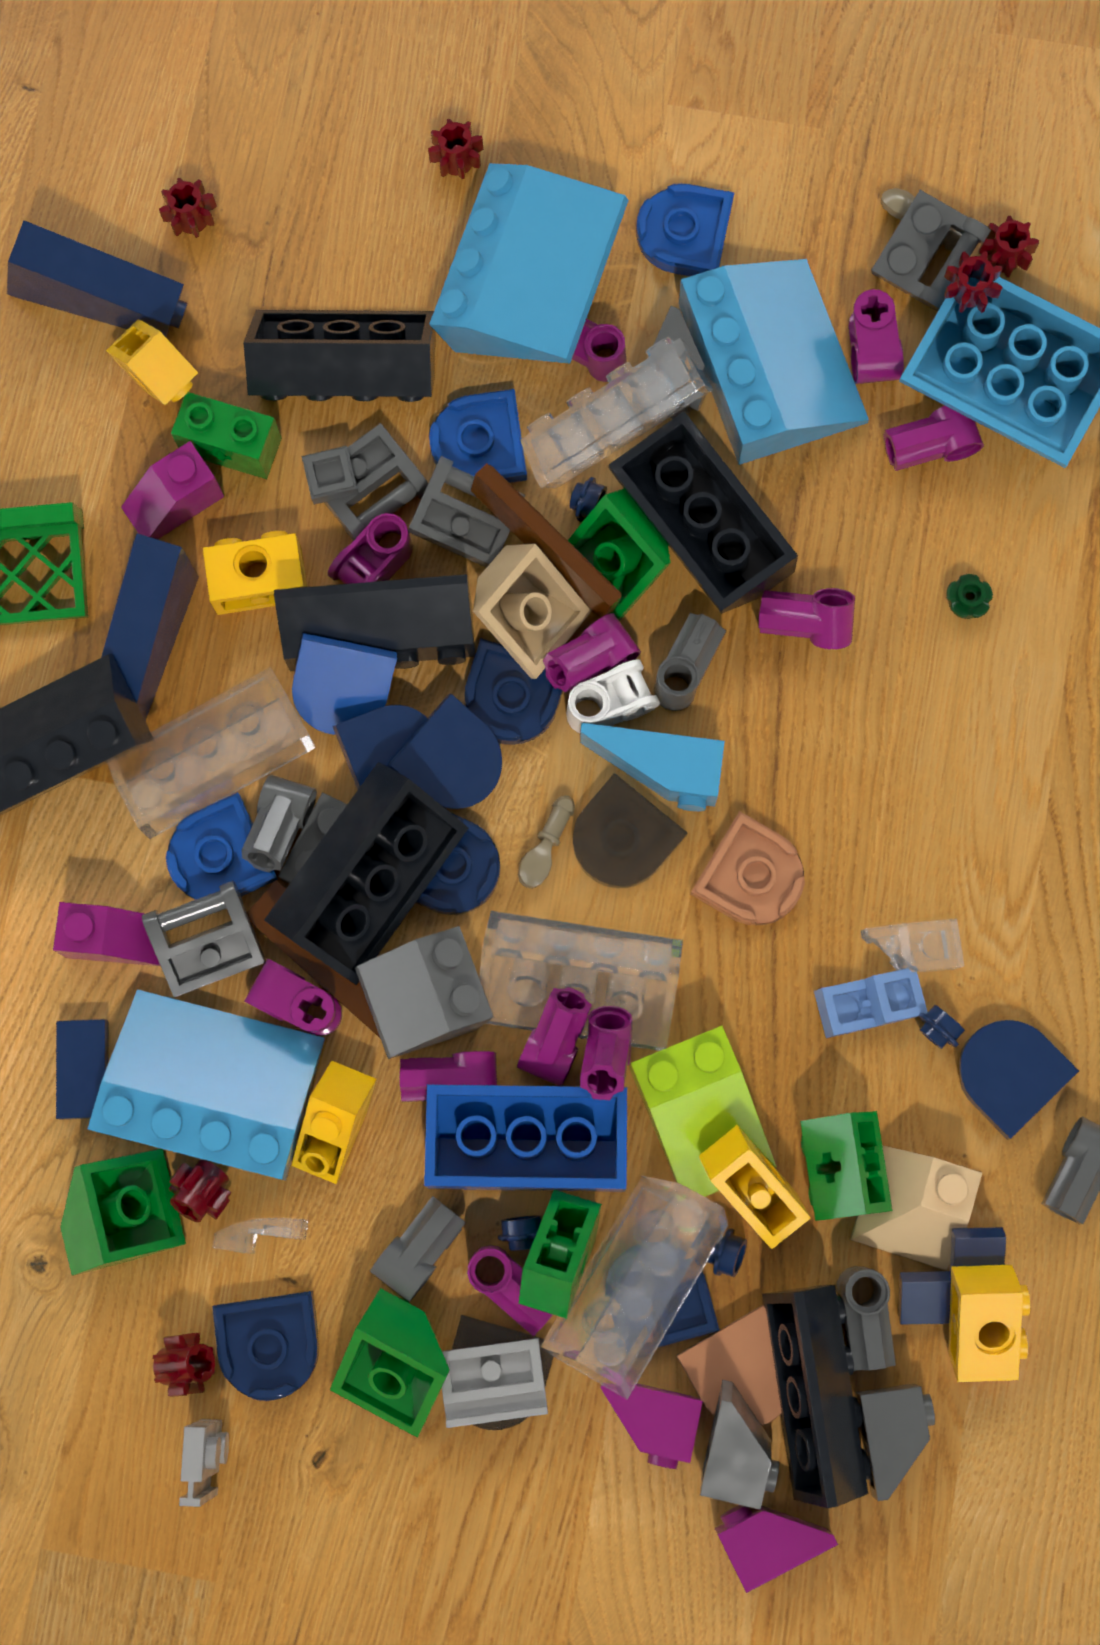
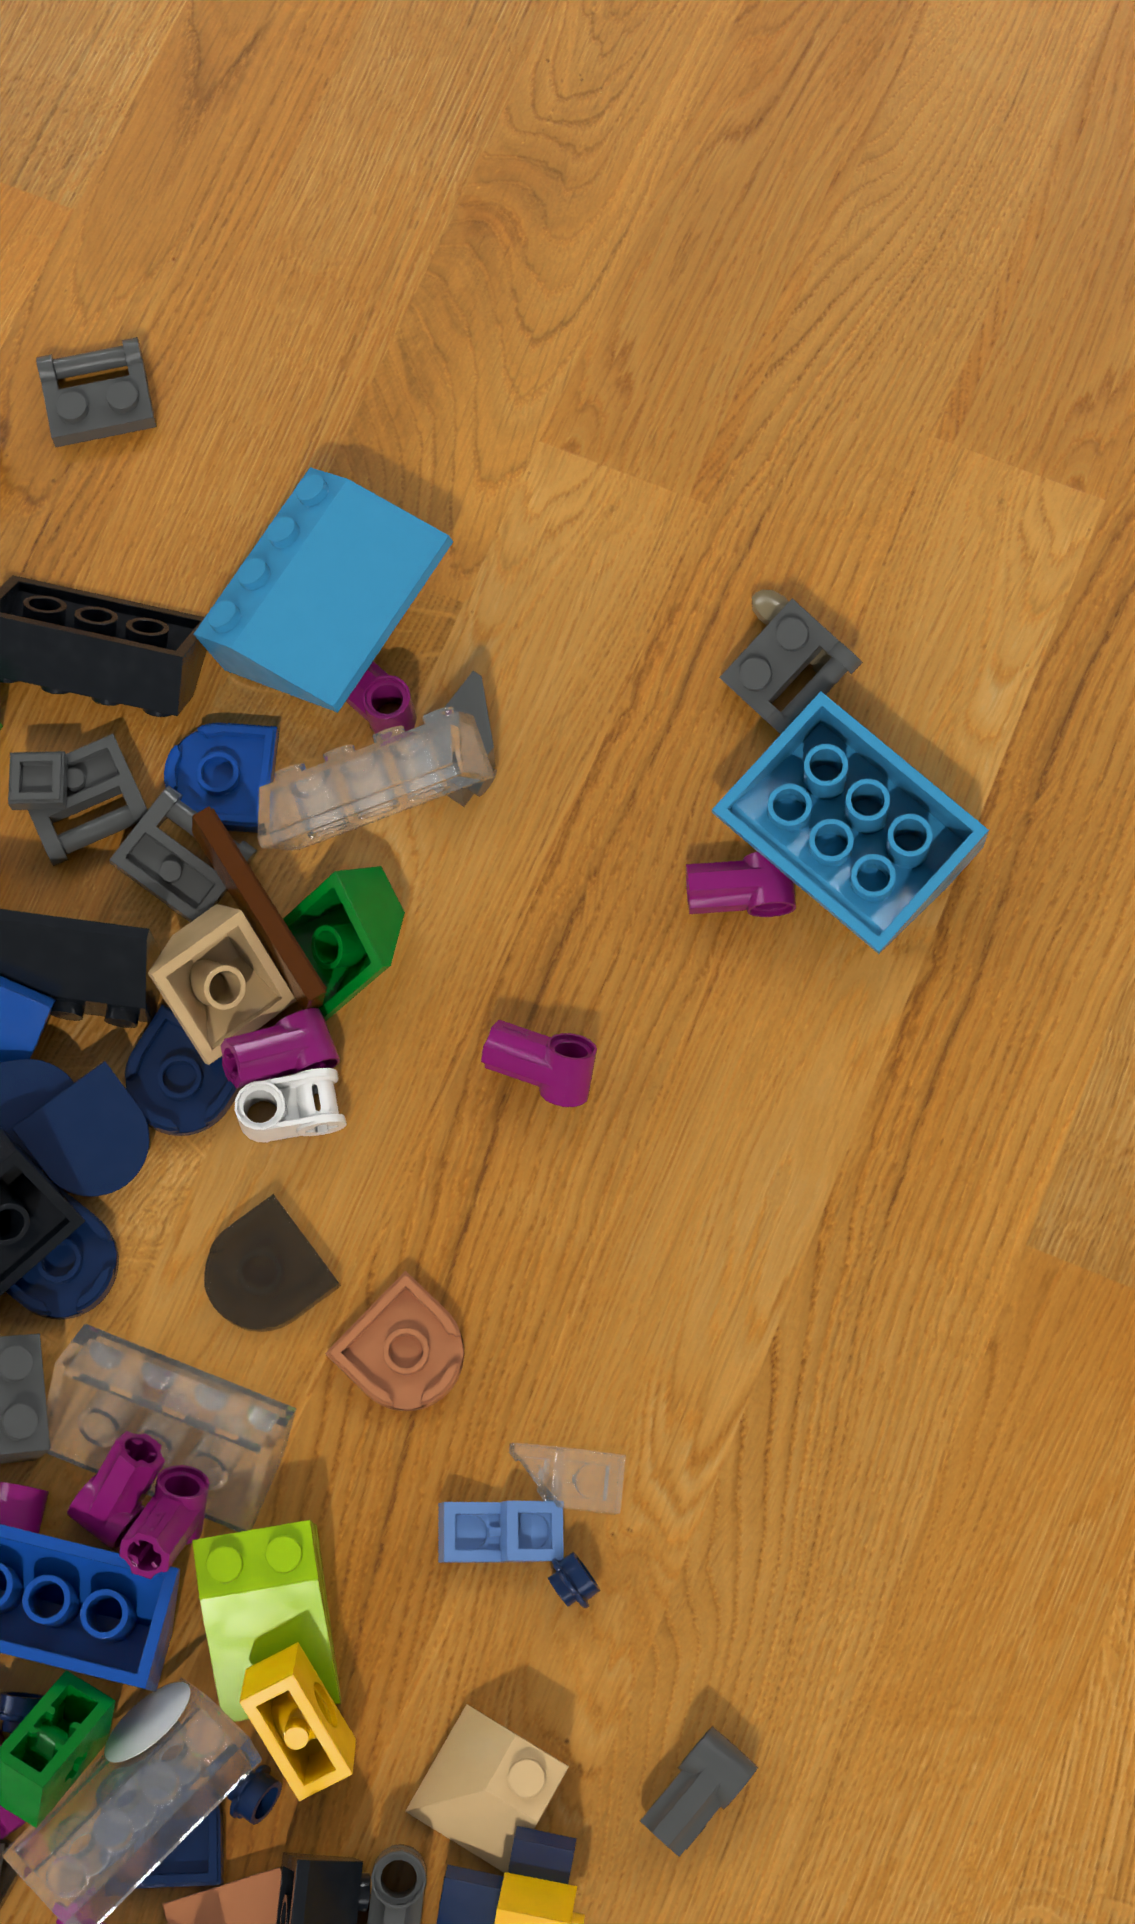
camera: 10 degrees right, 5 degrees down
(291, 151) = (97, 407): none -> dark grey plate
(368, 557) = (59, 884): magenta piece -> none
(455, 149) = (282, 442): dark red gear -> none
(537, 862) = (159, 1278): dark tan piece -> none
(586, 497) = (323, 864): dark blue plate -> none
(629, 1216) = (147, 1722): none -> white sticker
(669, 764) = (341, 1200): dark azure slope -> none
(684, 228) = (521, 586): blue tile -> none
(688, 660) = (393, 1080): dark grey piece -> none
(705, 514) = (447, 920): black slope -> none
(770, 356) = (580, 751): dark azure slope -> none
(845, 1165) = (415, 1721): green brick -> none
(875, 345) = (700, 763): magenta piece -> none
(961, 605) = (737, 1093): dark green plate -> none
(978, 268) = (811, 704): dark red gear -> none
(1009, 245) = (888, 669): dark red gear -> none
(1011, 1073) = (644, 1654): dark blue tile -> none

